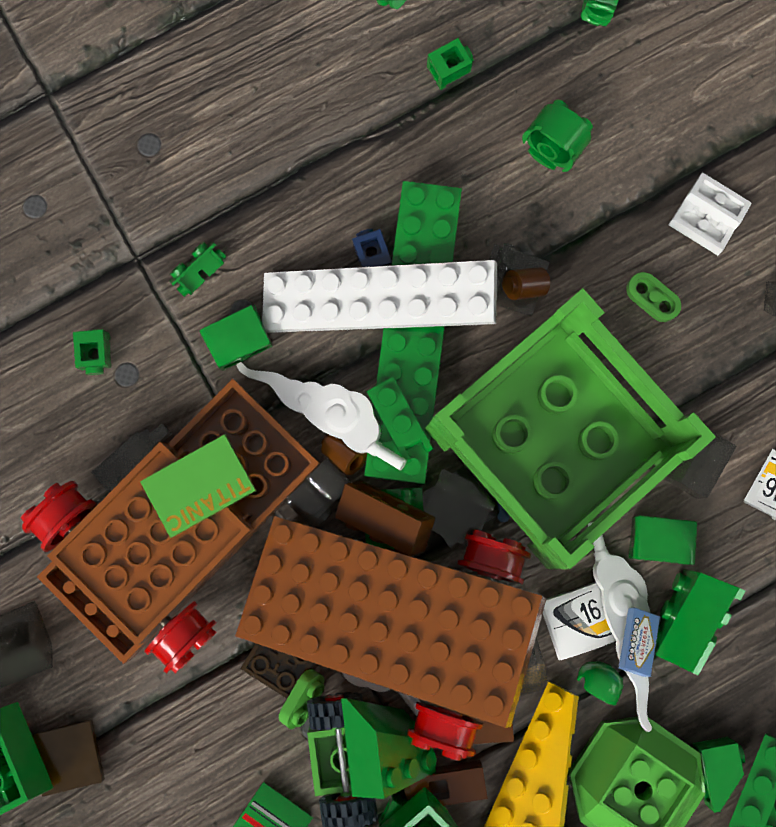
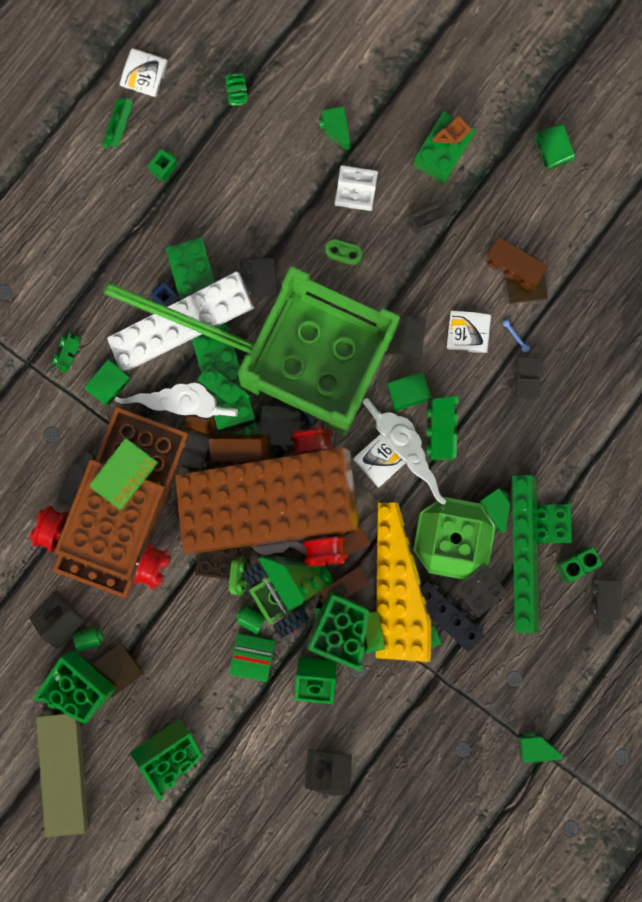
camera: 20 degrees left, 0 degrees up
(47, 693) = (88, 638): none -> green brick
(85, 343) = (20, 424): green brick -> none
(291, 771) = (250, 619): none -> green brick
(379, 290) = (179, 318): none -> bright green axle
(526, 283) = (264, 276): reddish brown brick -> none
(557, 136) = (245, 182): green brick -> none
(602, 681) = (407, 487): green hair -> none
(639, 642) = (418, 455): tile -> none
(719, 113) = (335, 126): none -> green slope

